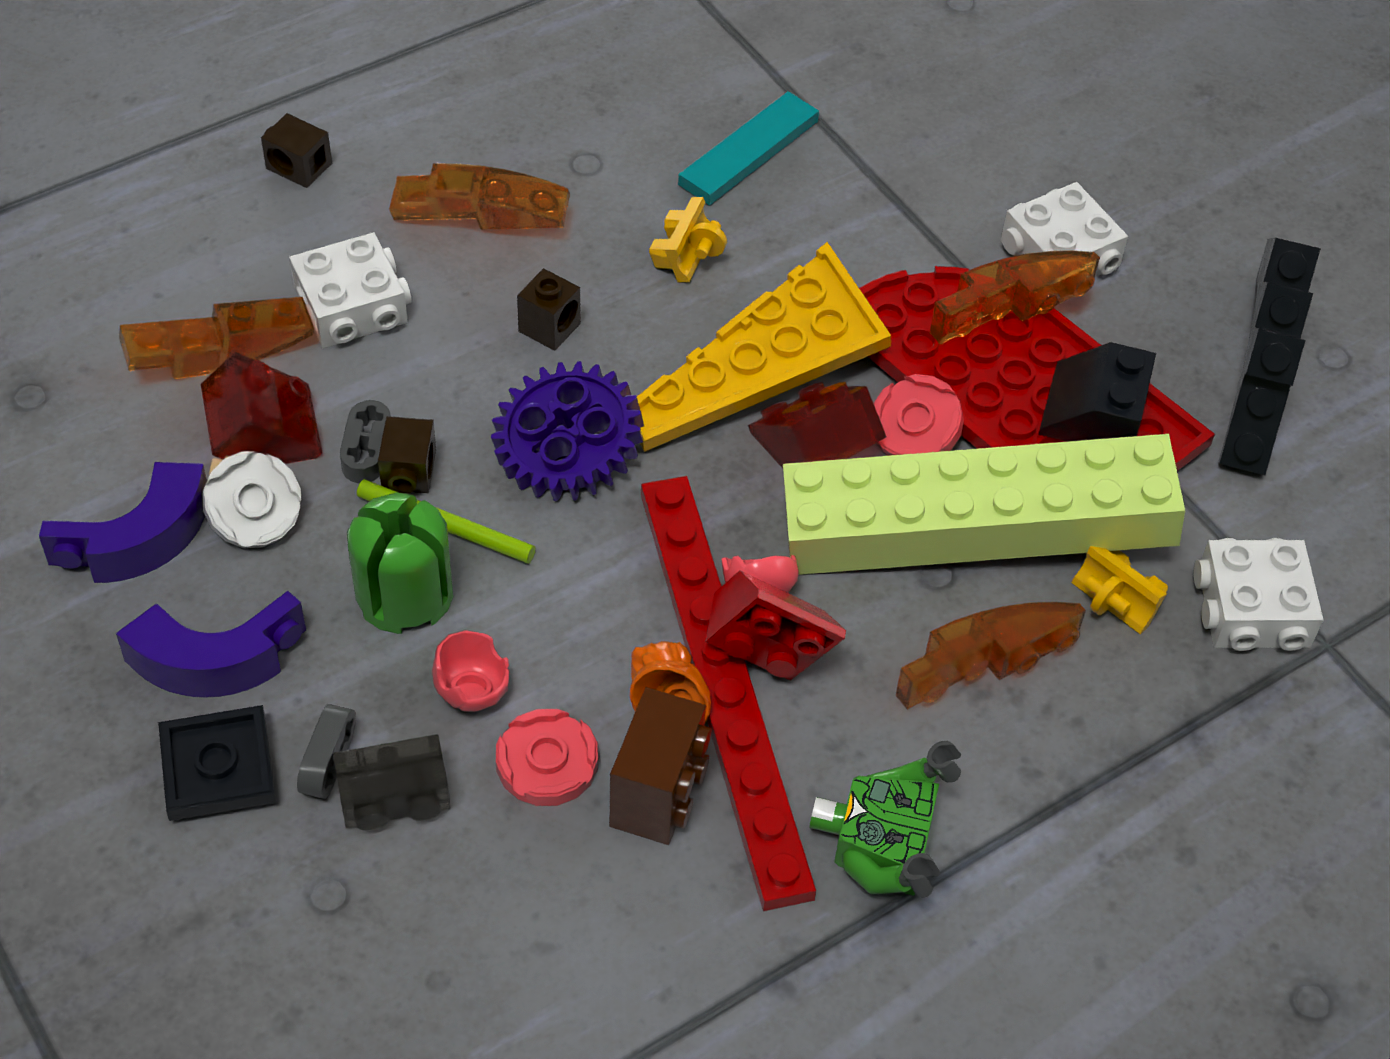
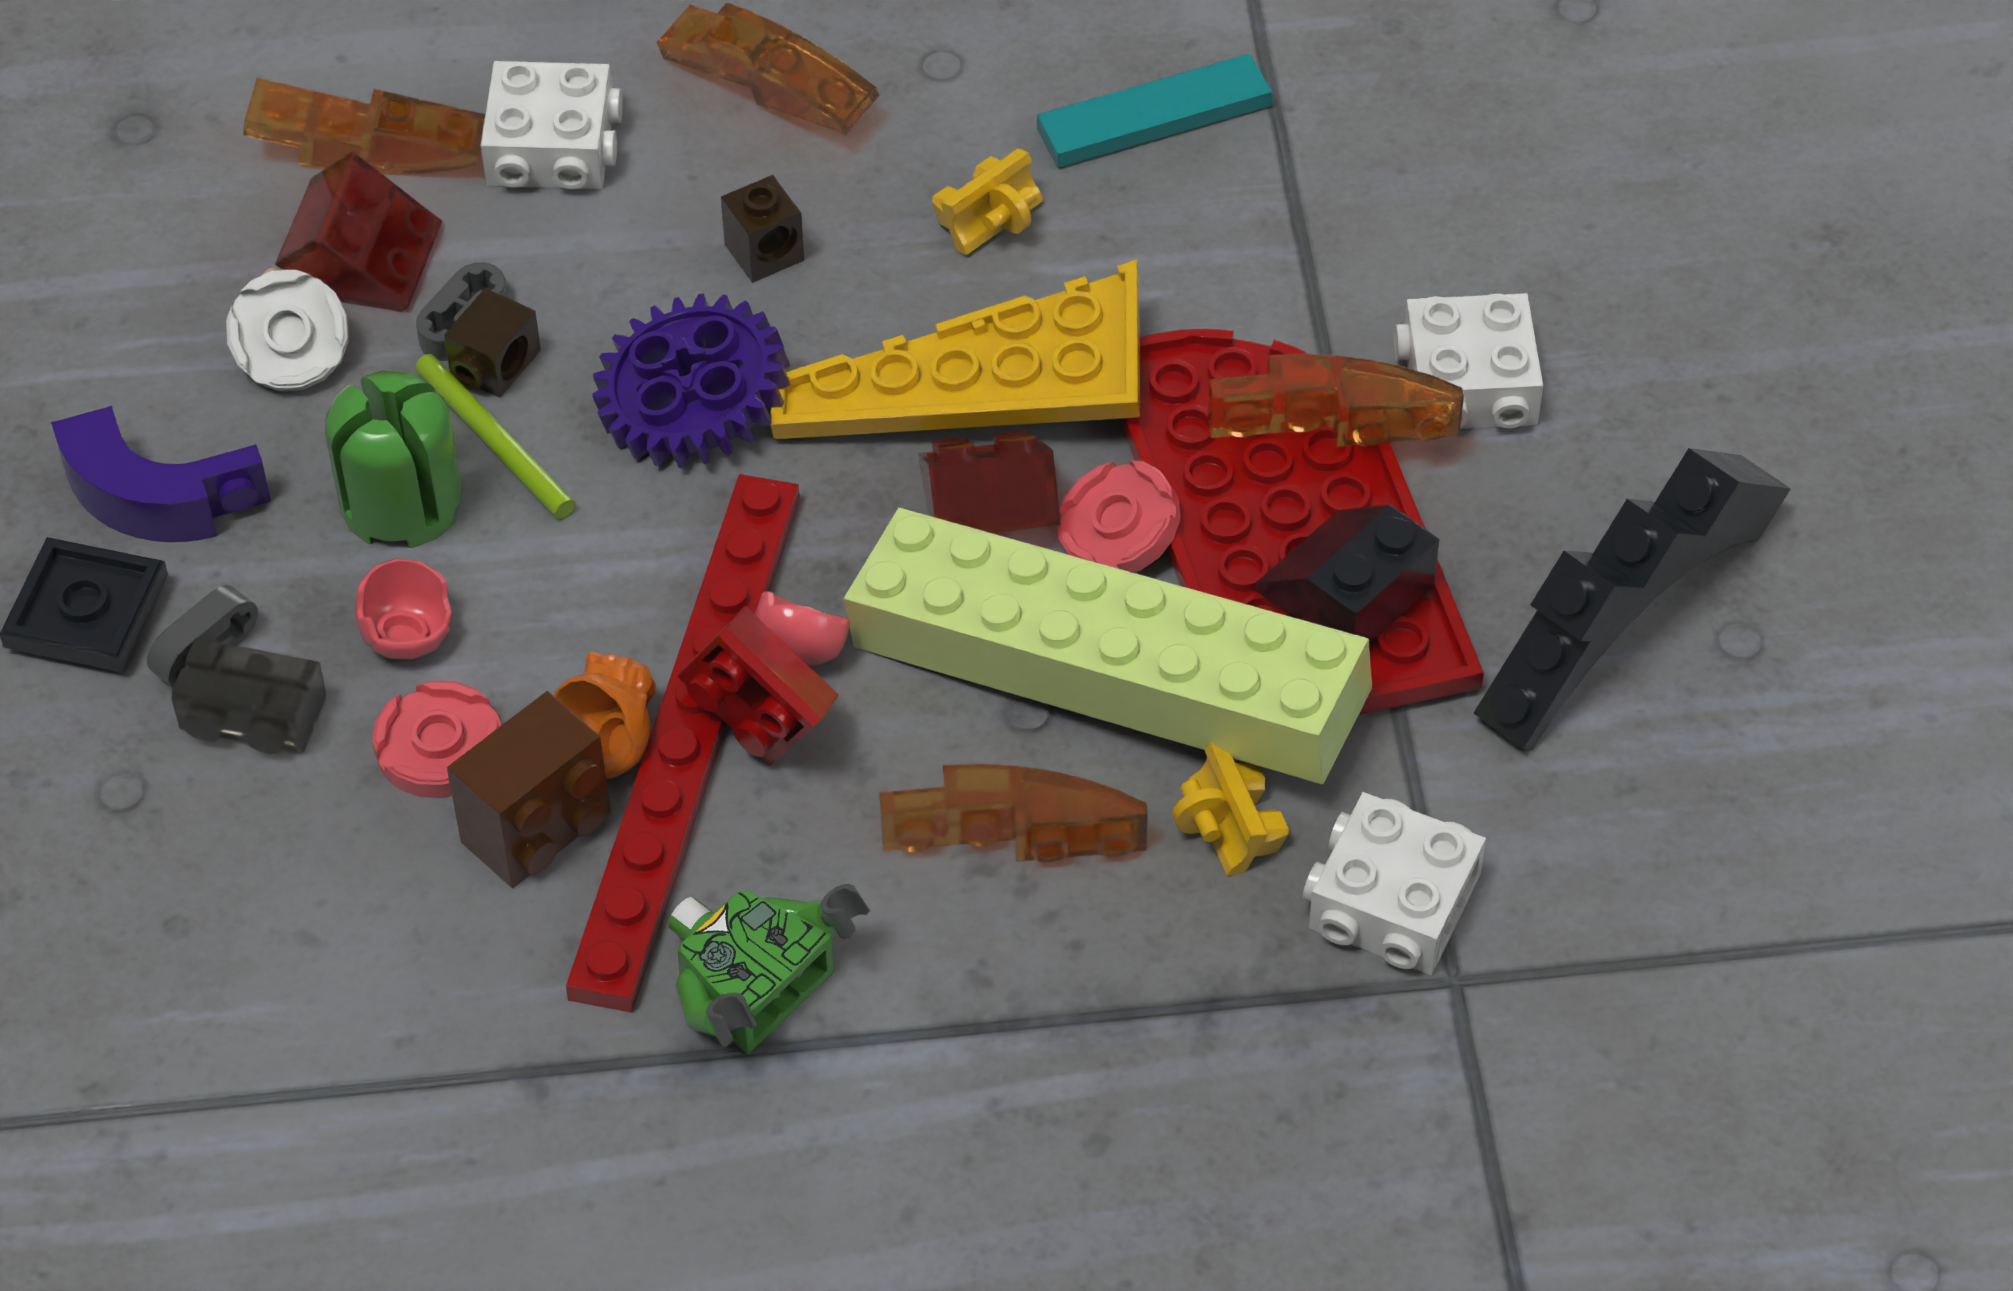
camera: 30 degrees right, 0 degrees up
(140, 539) = (147, 330): dark purple arch -> none

